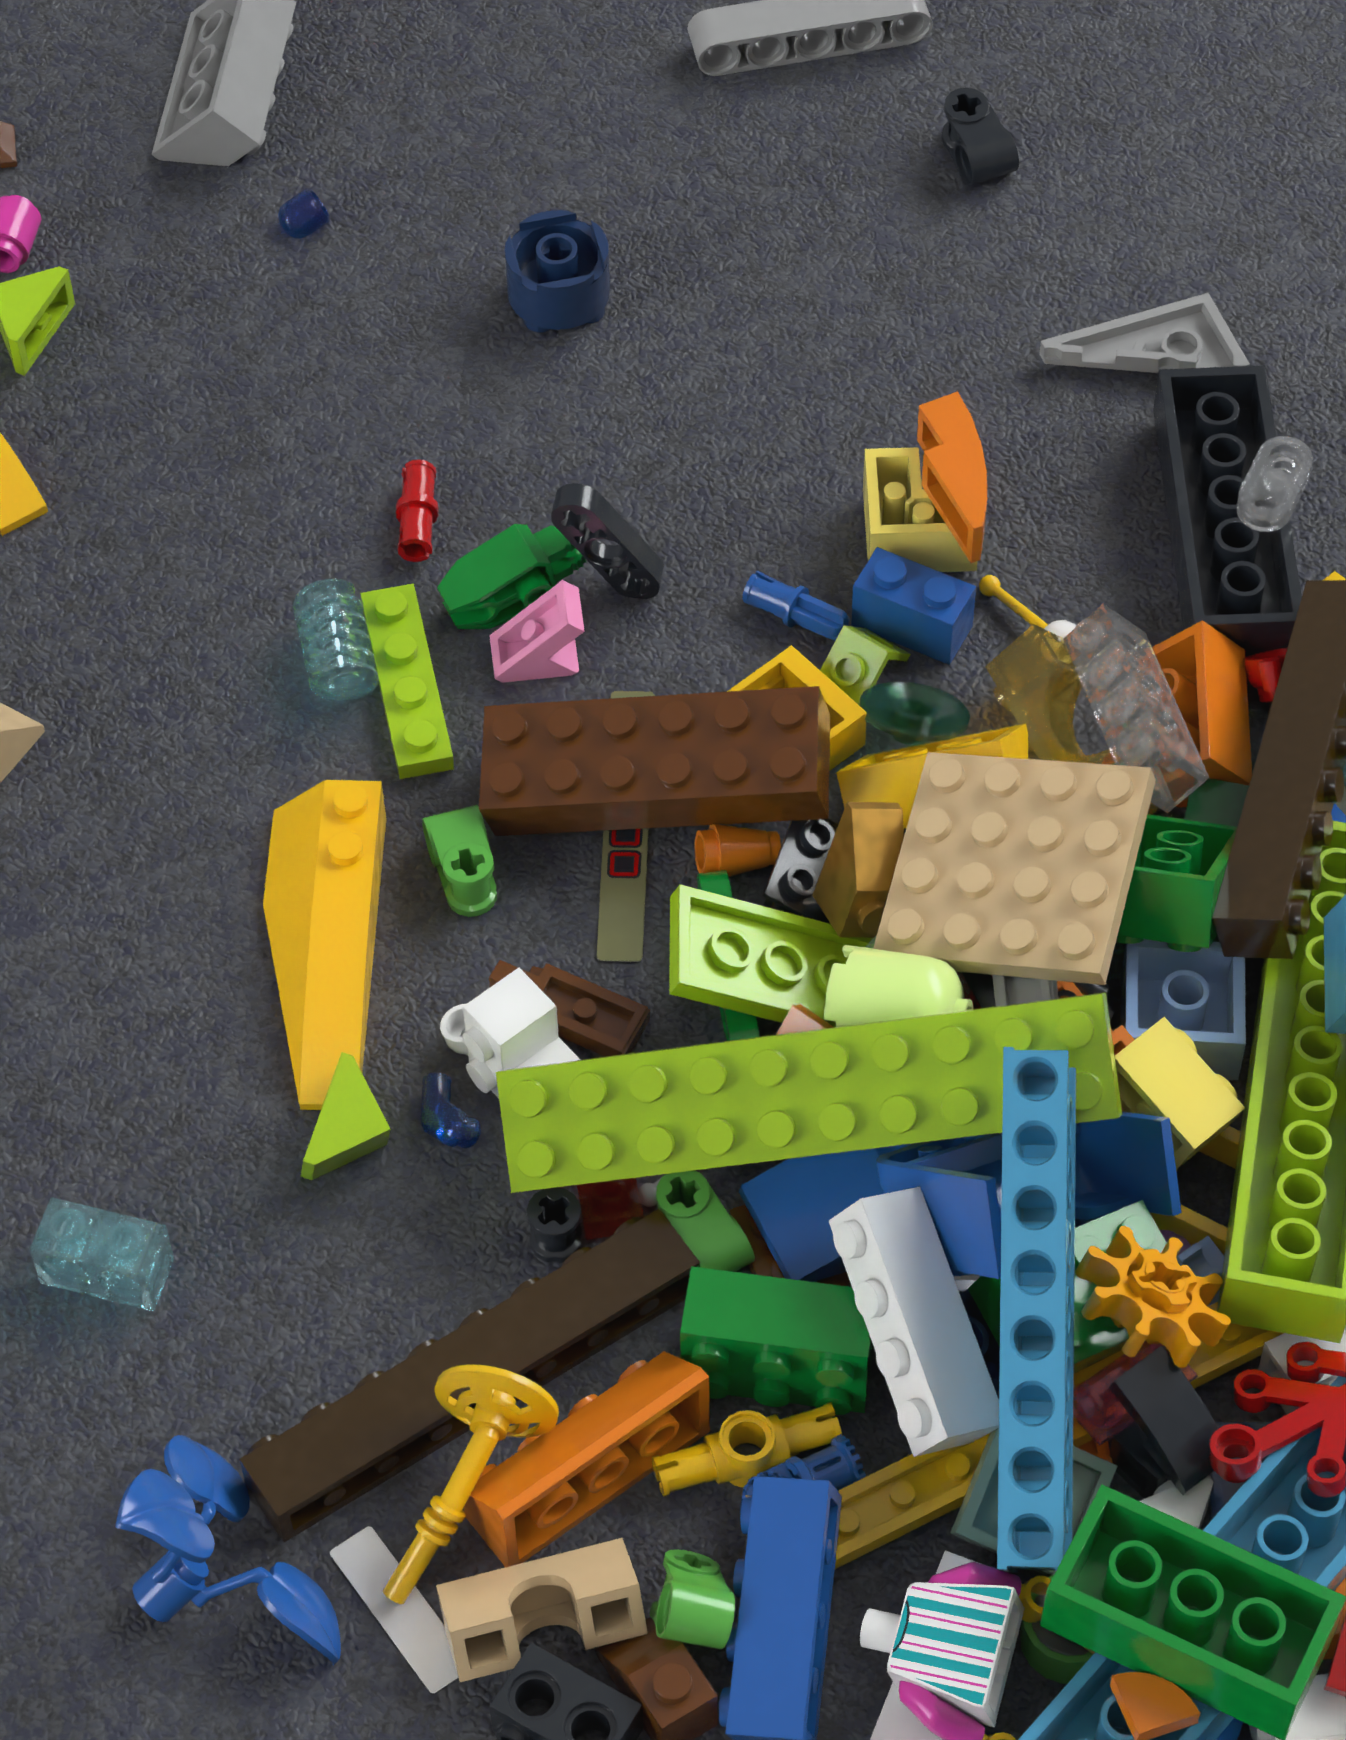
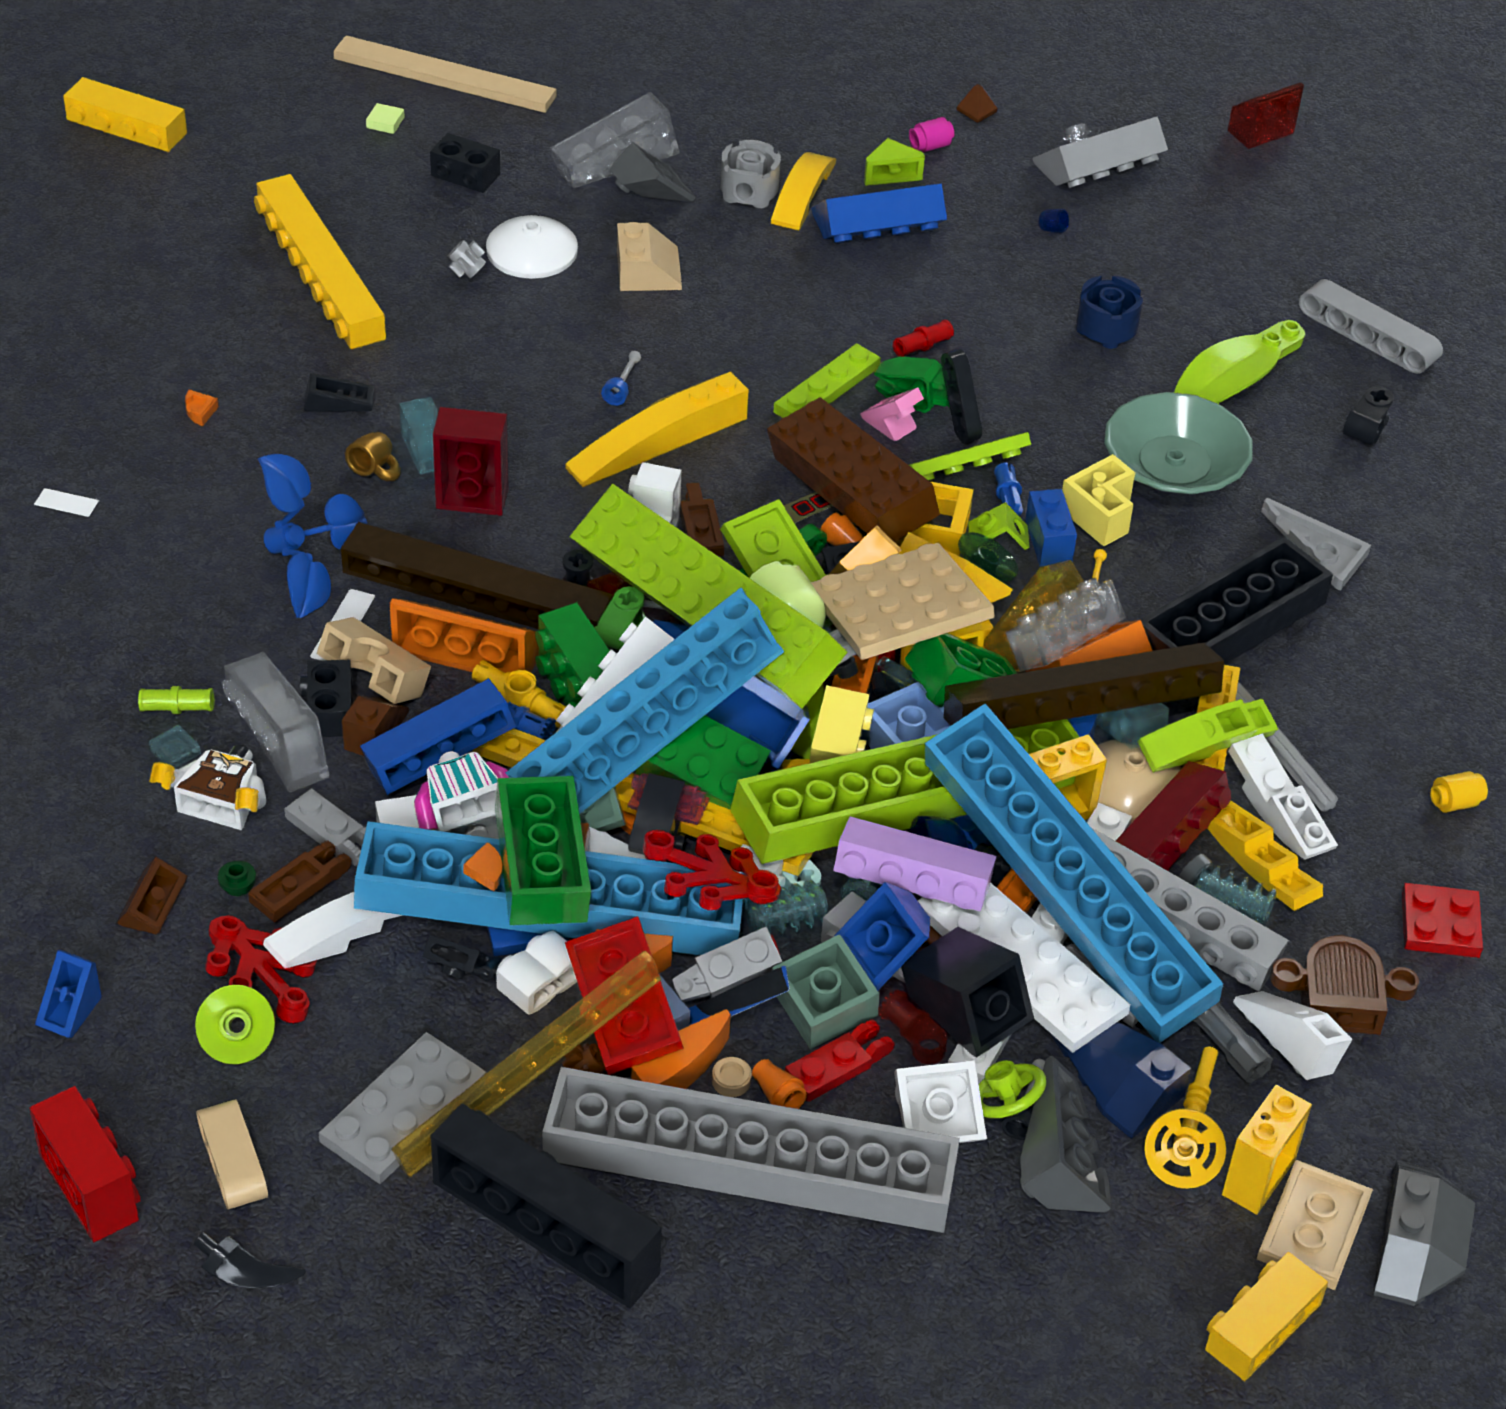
camera: 50 degrees right, 10 degrees down
(78, 1355) = (369, 454): none -> pearl gold piece
(119, 395) = (880, 212): none -> blue slope
(159, 74) = (1076, 132): none -> clear plate
(203, 943) = (618, 383): none -> blue hinge
(255, 1225) = (471, 461): none -> dark red brick
(335, 641) = (818, 345): clear light blue piece -> none
(347, 1124) = (563, 475): lime slope -> none
(463, 859) = (744, 448): bright green piece -> none
(489, 1421) = (444, 579): yellow dish -> none
(693, 1601) = (413, 696): bright green piece -> none
(696, 608) = (978, 454): none -> lime plate
(770, 216) = (1239, 362): none -> lime plant
(872, 350) = (1179, 442): none -> sand green dish
(954, 470) = (1126, 485): orange slope -> none
(1152, 1296) = (705, 763): light orange gear -> none
(1271, 487) = (1252, 604): clear plate -> none

